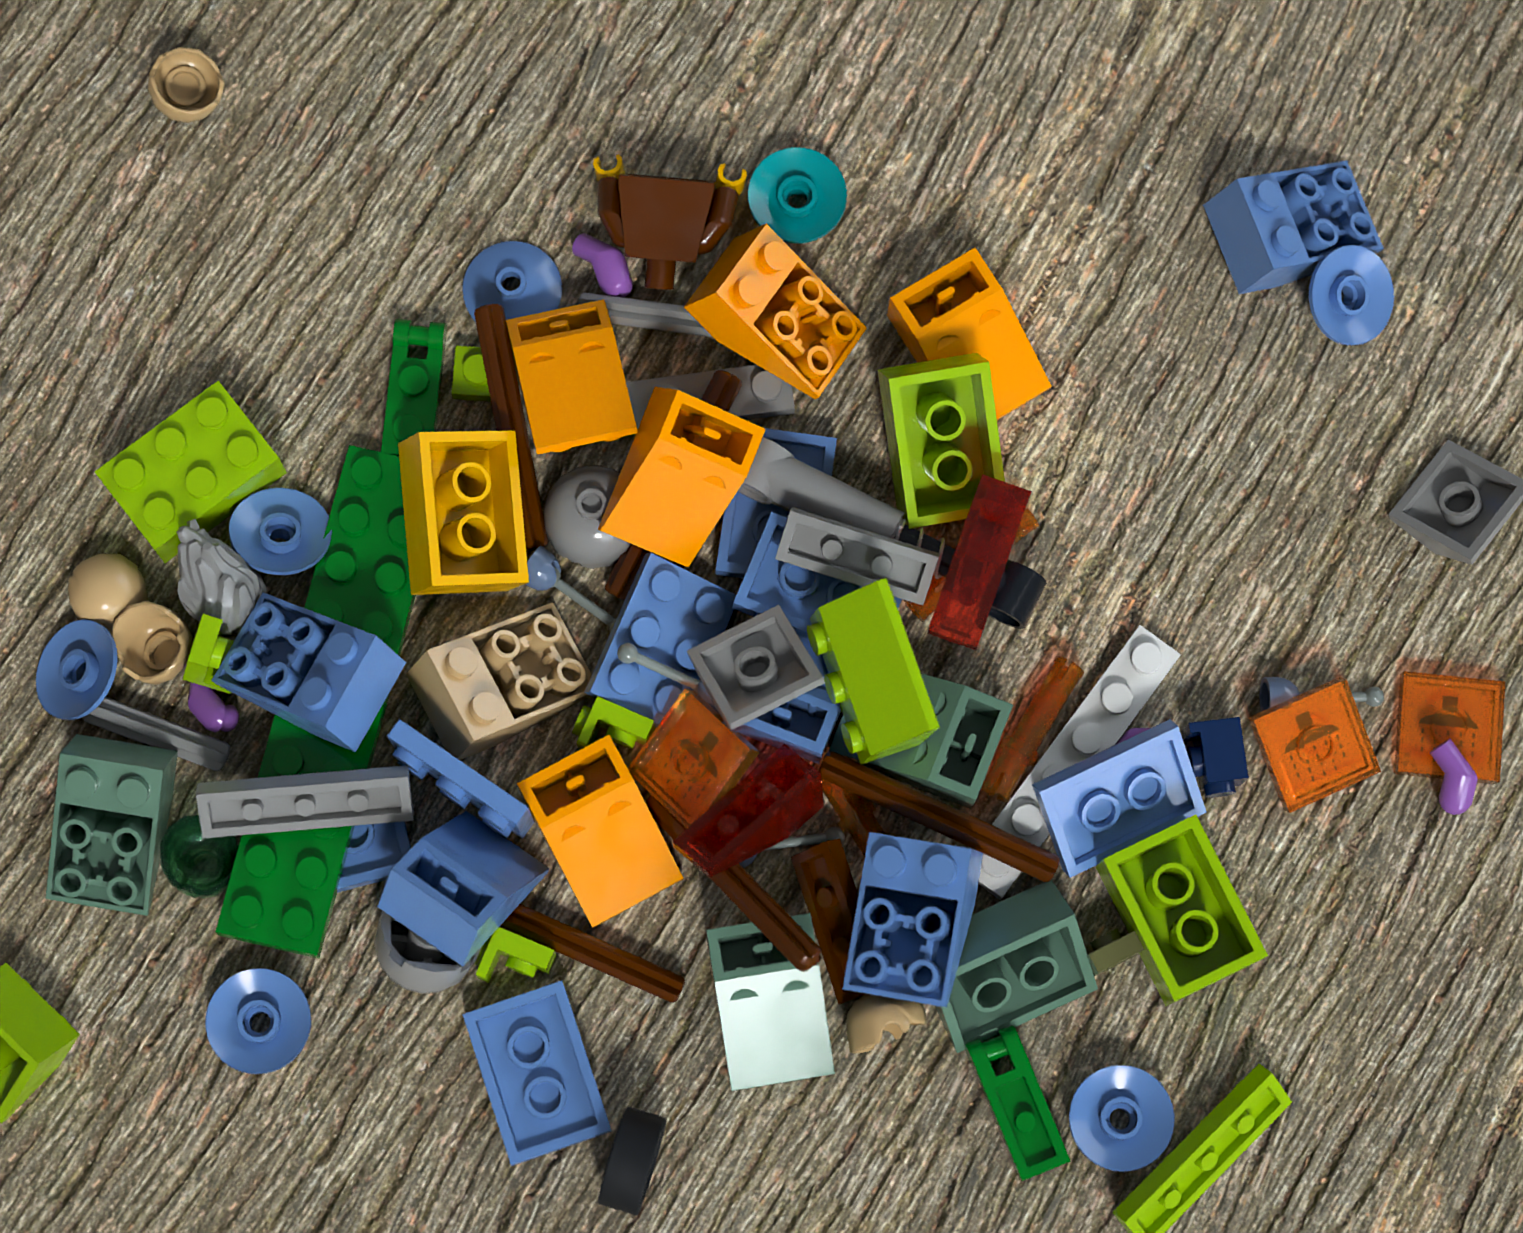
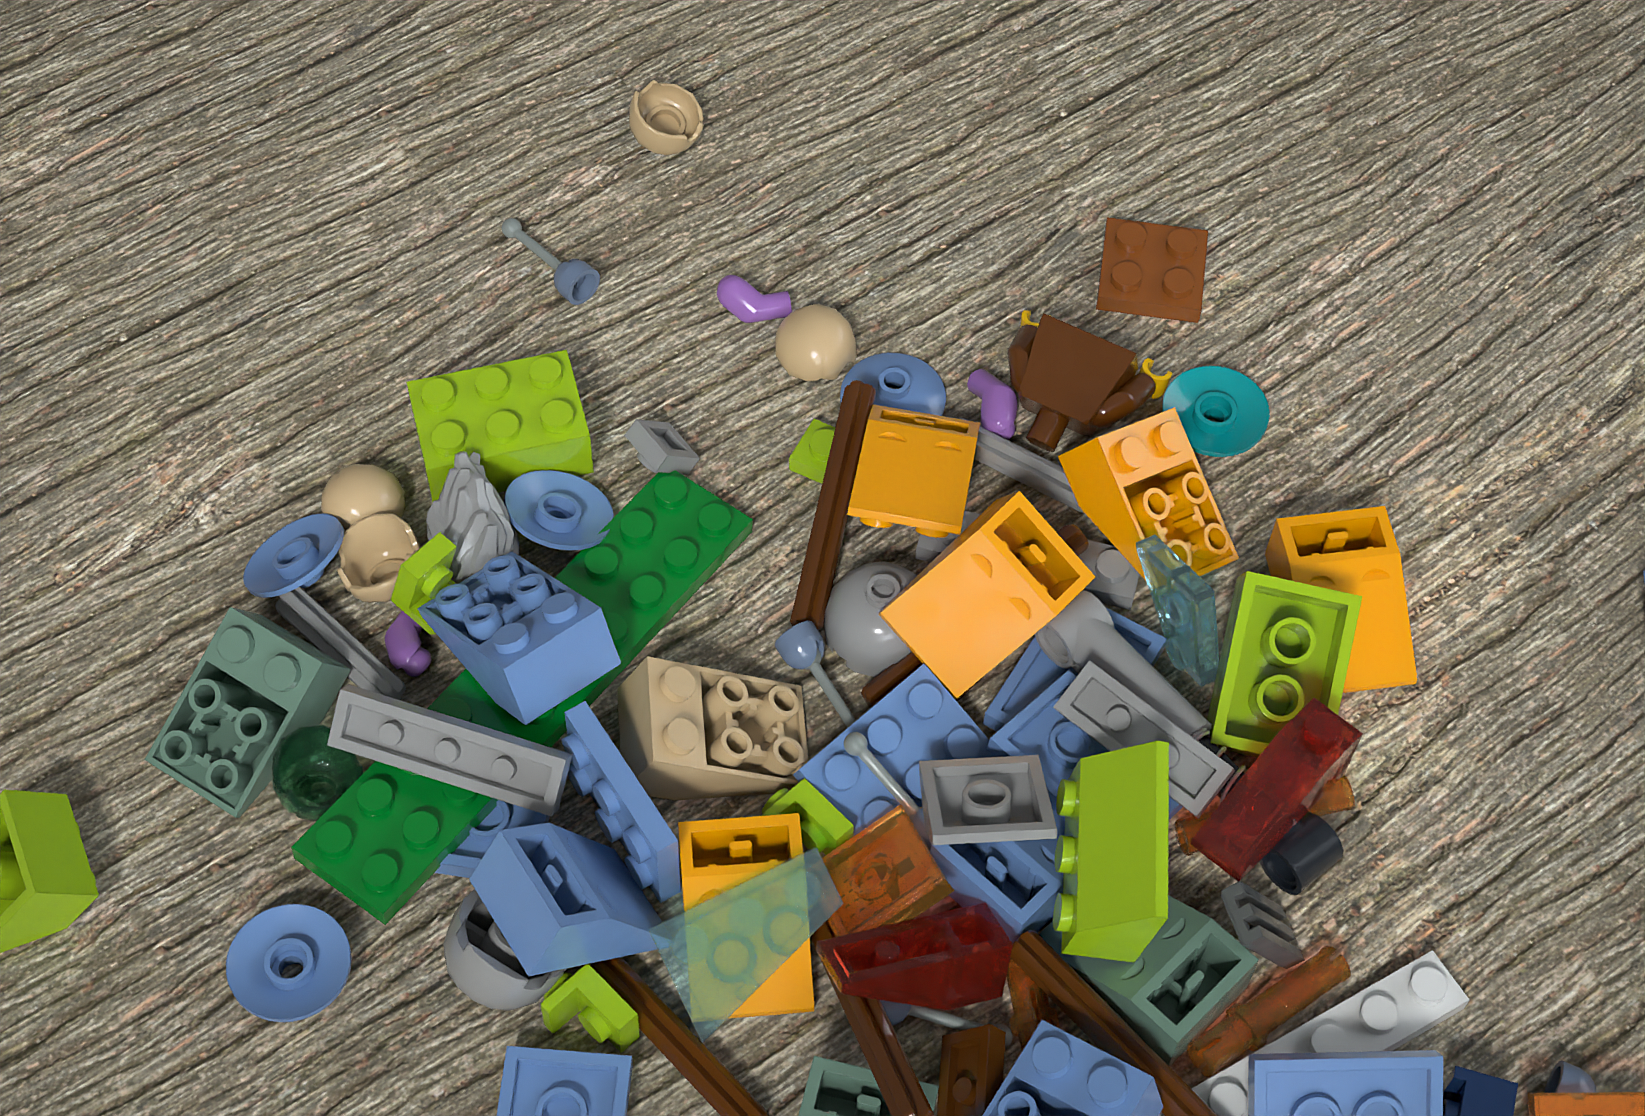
camera: 25 degrees right, 20 degrees down
(179, 289) = (572, 279): none -> sand blue hinge
(338, 431) = (661, 447): none -> light grey plate
(345, 249) = (749, 304): none -> medium lavender arm
(413, 383) = (754, 443): green plate -> none
(424, 268) = (815, 343): none -> tan hair
(463, 512) = (748, 553): yellow brick -> none
(608, 852) = (743, 935): none -> clear light blue wing
(687, 62) = (1152, 270): none -> dark orange plate
(842, 412) = (1184, 610): none -> clear light blue wing
(1011, 662) = (1266, 934): none -> dark grey tile

